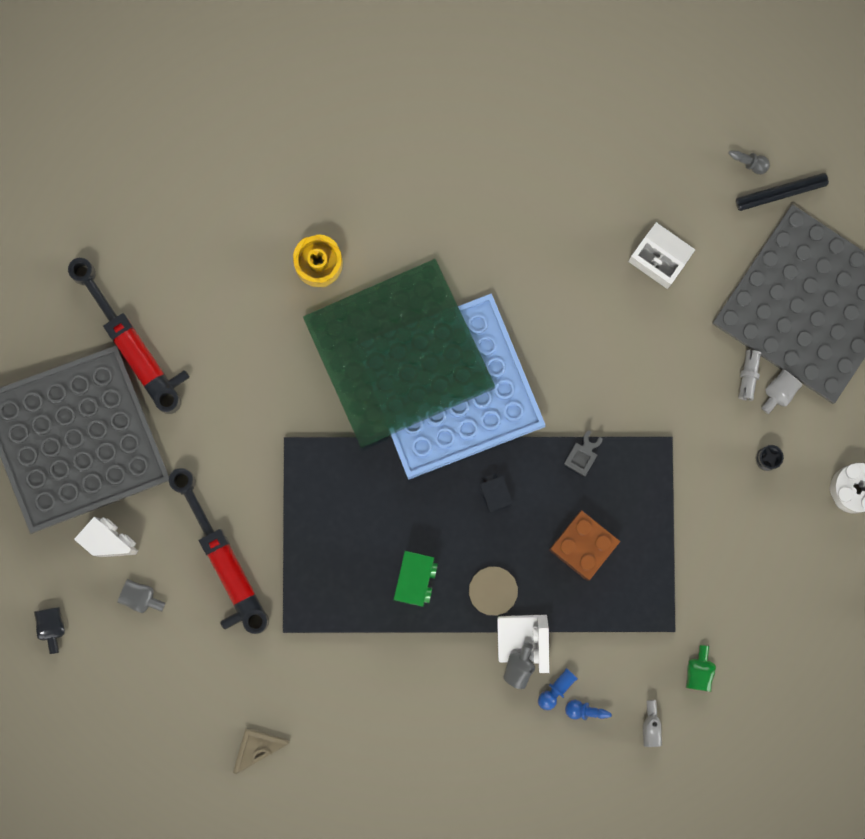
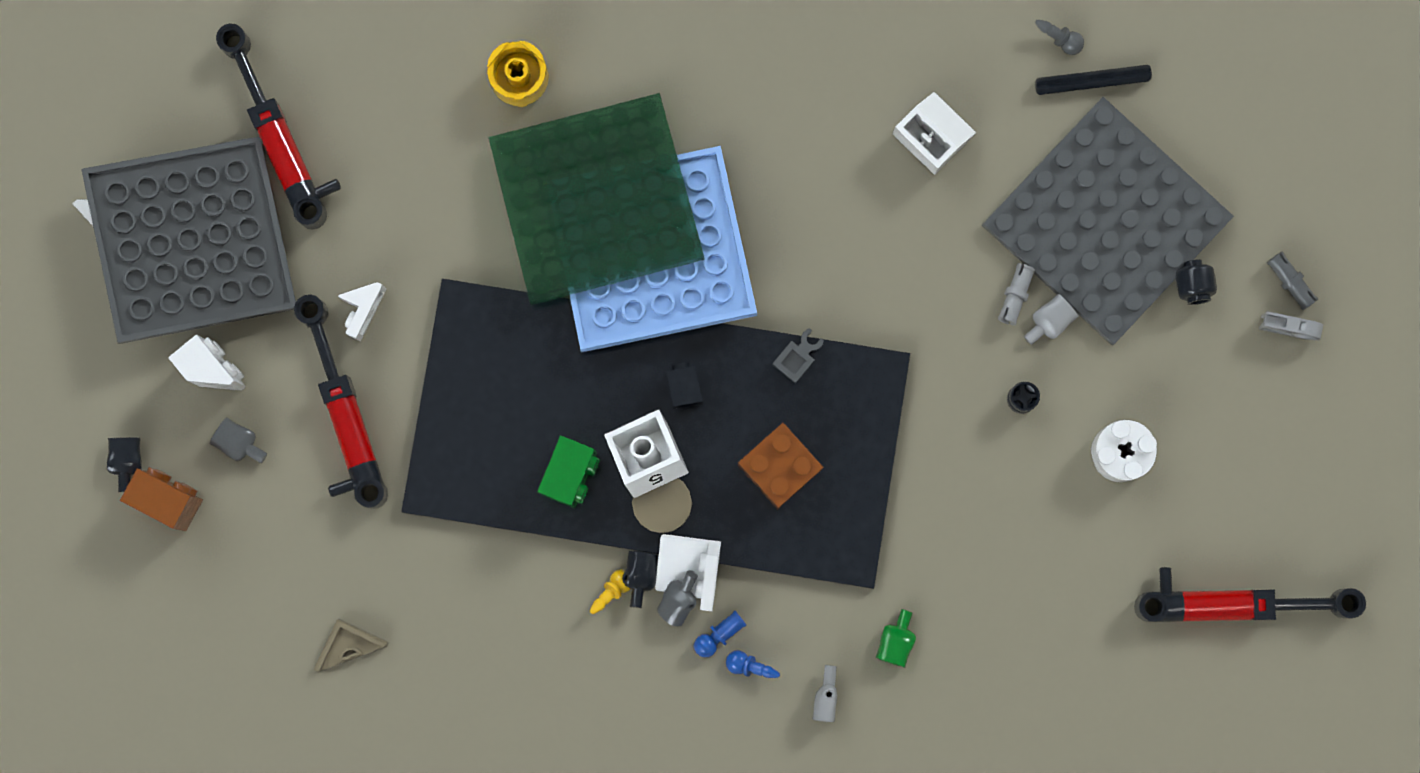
camera: 15 degrees right, 0 degrees up
(87, 655) = (162, 500): none -> dark orange brick
(226, 465) = (367, 301): none -> white slope
(469, 660) = (612, 590): none -> yellow bar
(475, 553) = (646, 453): none -> white brick
(485, 652) = (640, 575): none -> black piece

